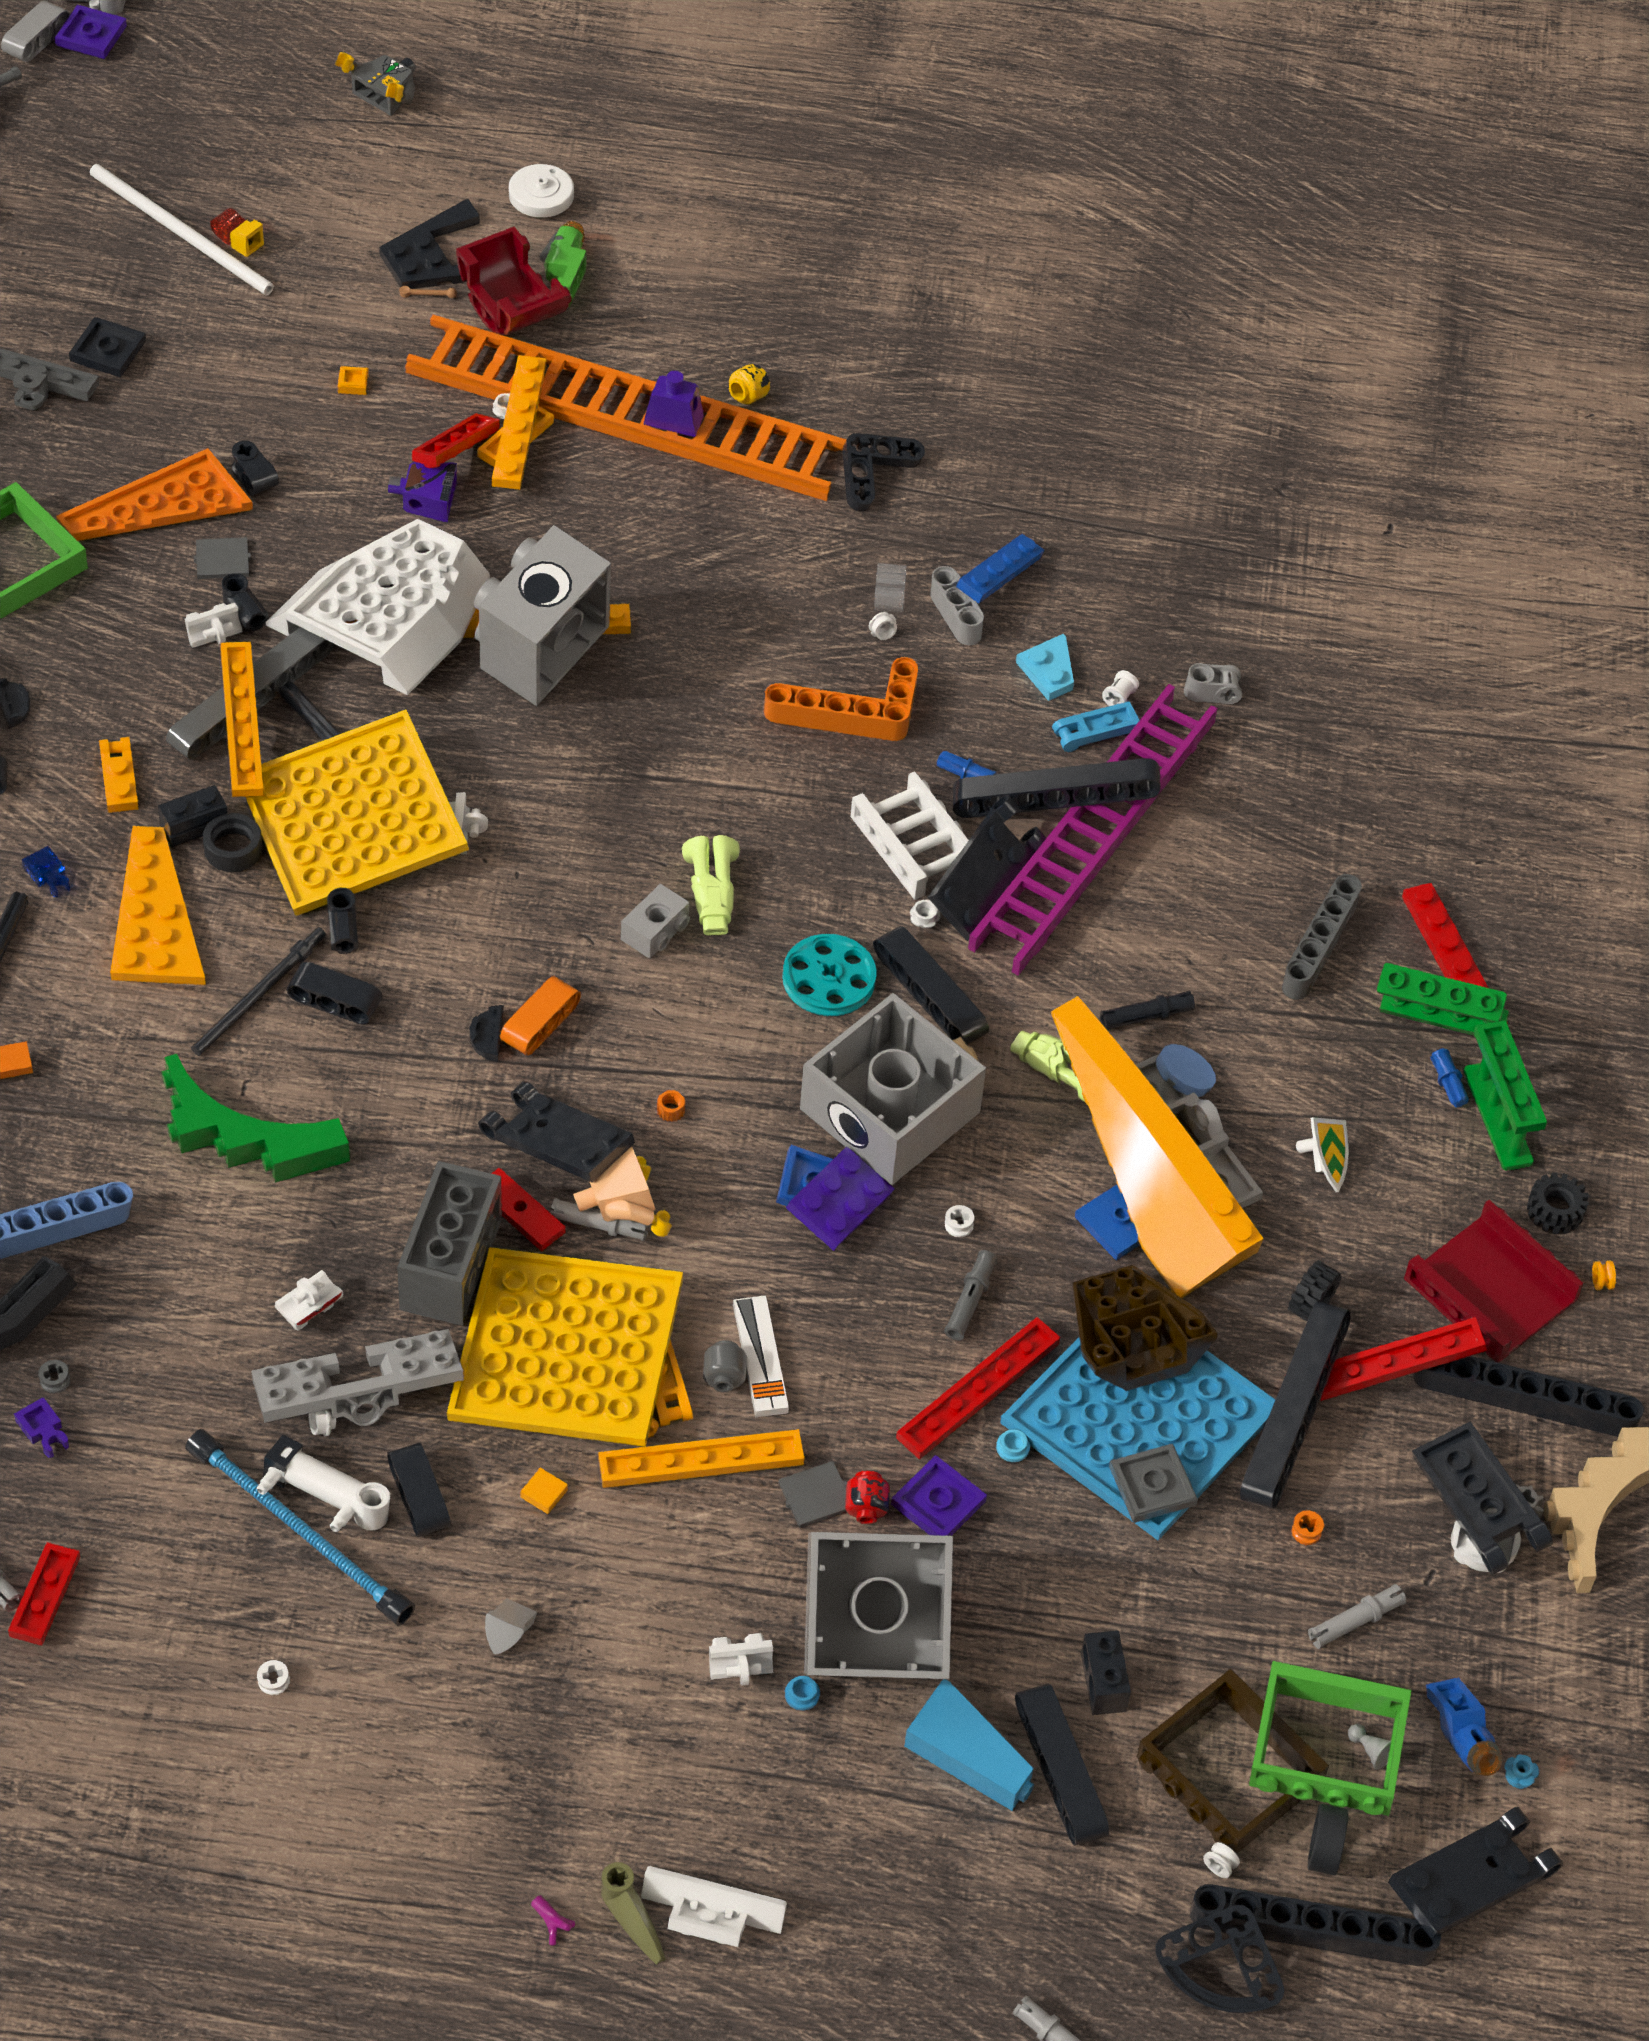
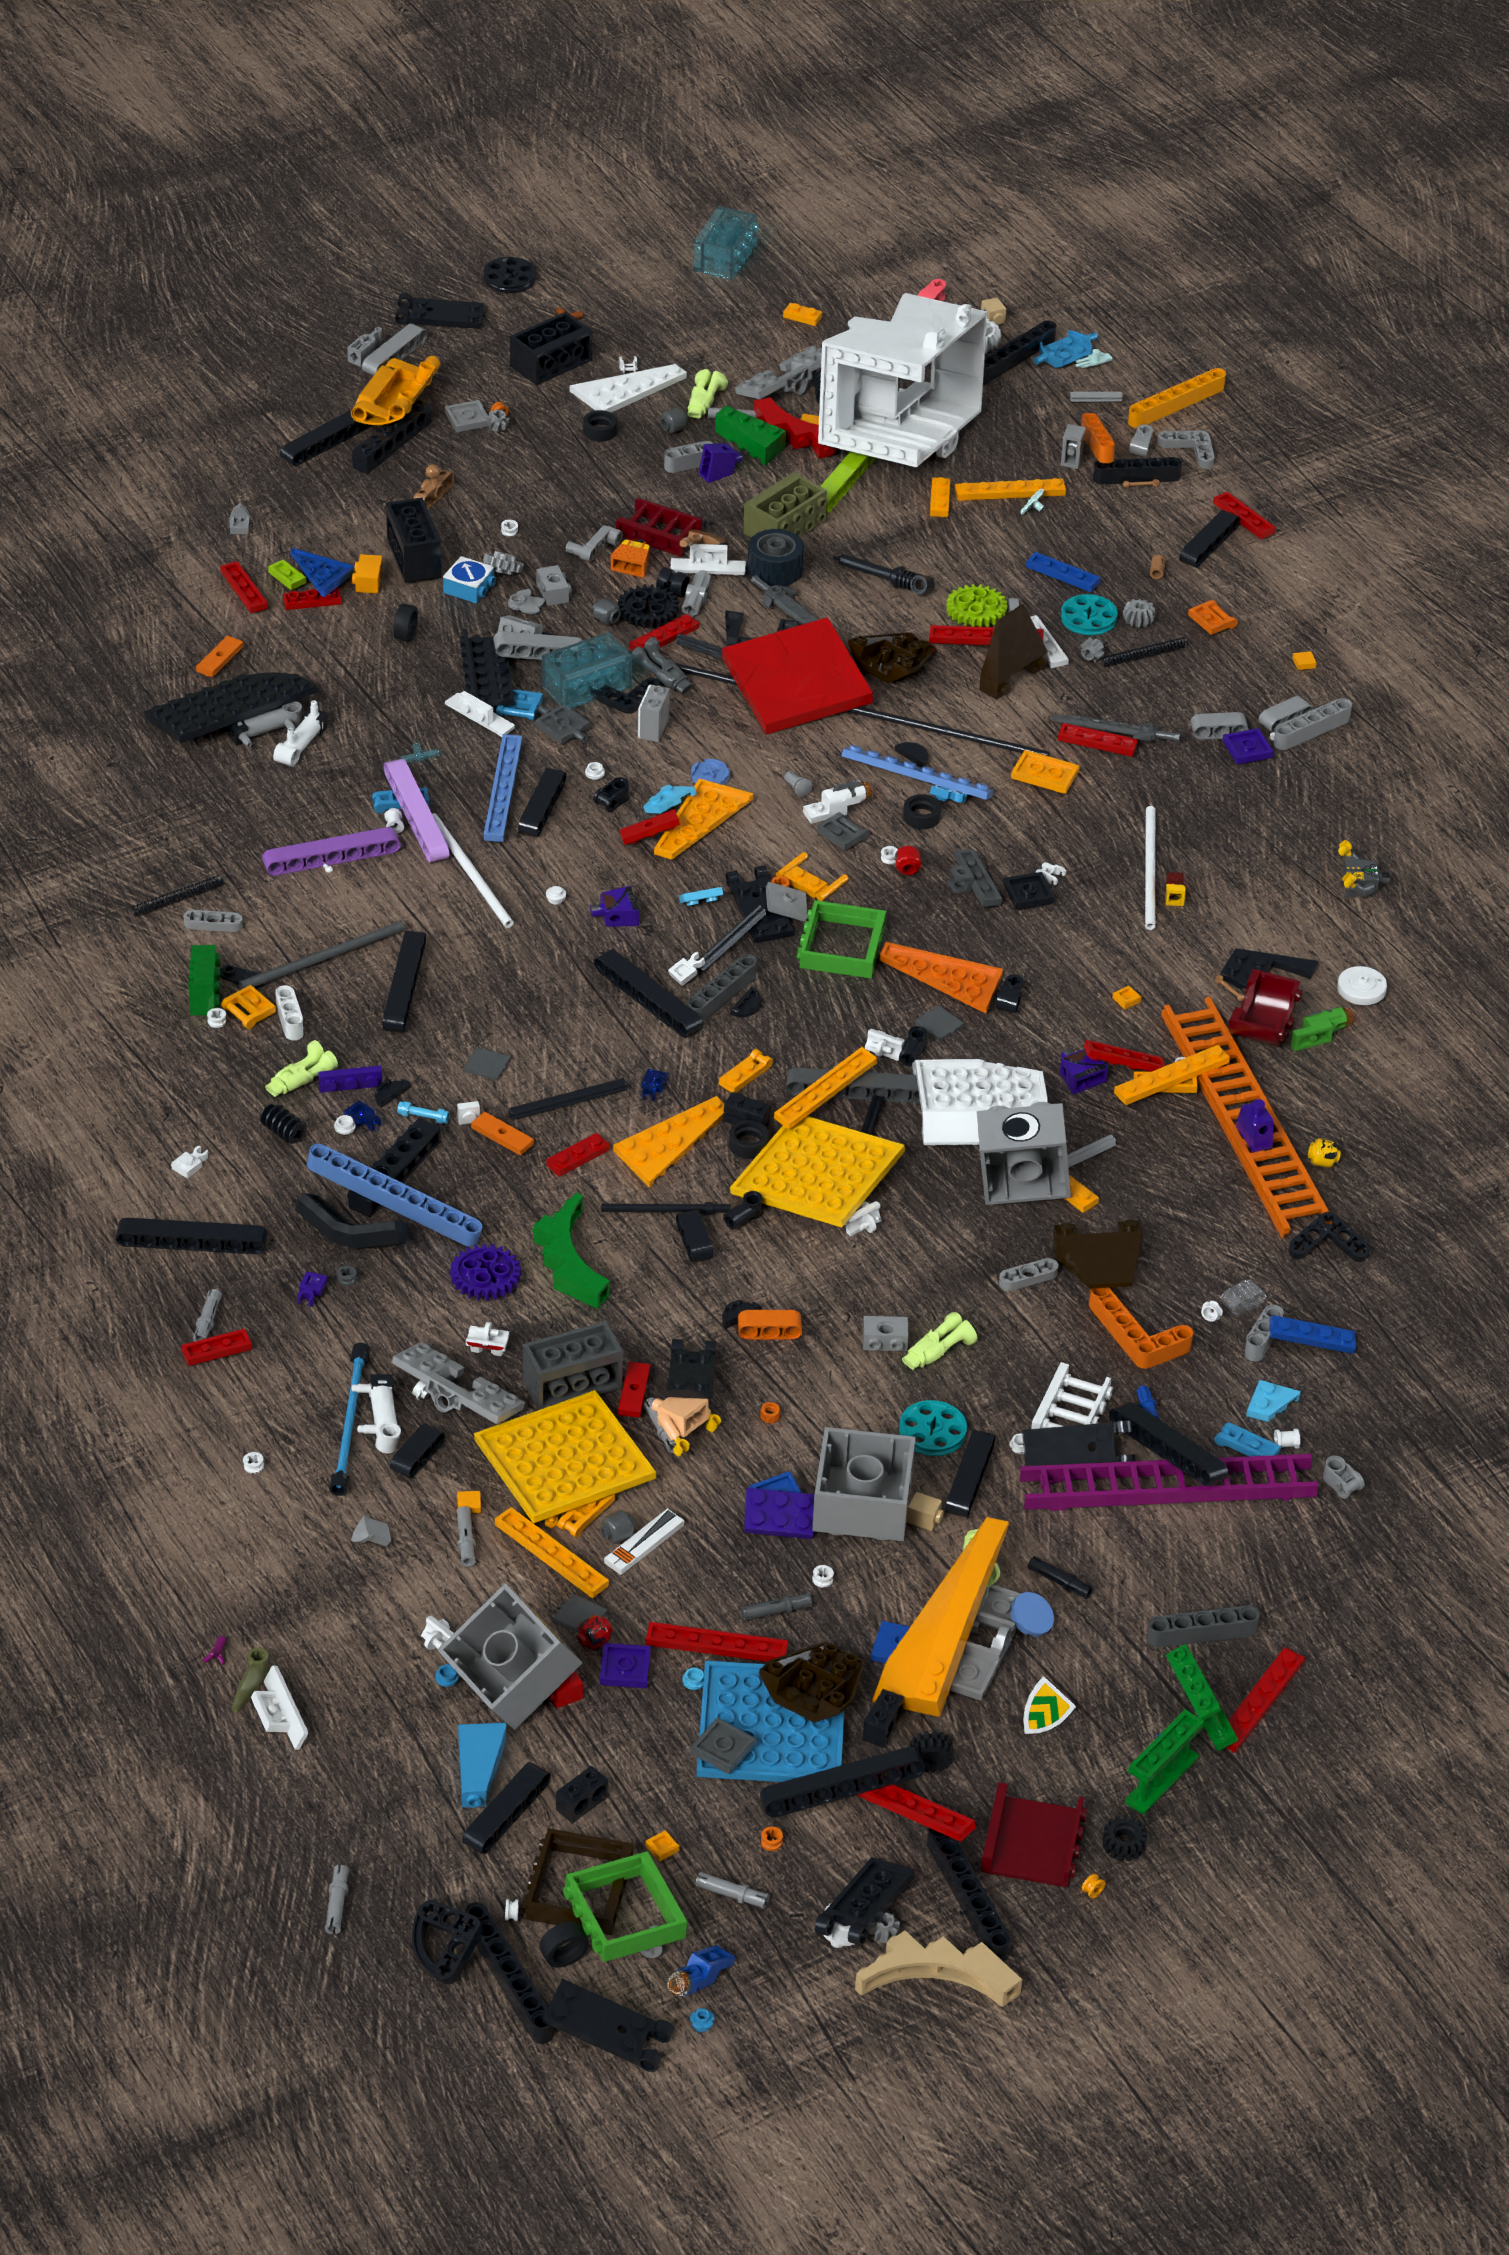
camera: 55 degrees right, 10 degrees down
(87, 1017) = (577, 1154): none -> red plate
(95, 307) = (1052, 870): none -> white piece
(194, 1231) = (485, 1272): none -> dark purple gear
(610, 1535) = (466, 1542): none -> light grey pin
(678, 728) = (1014, 1277): none -> light grey beam
(731, 662) = (1100, 1258): none -> dark brown wedge
(1224, 1304) = (883, 1718): none -> black brick
(1234, 1642) = (662, 1845): none -> light orange tile

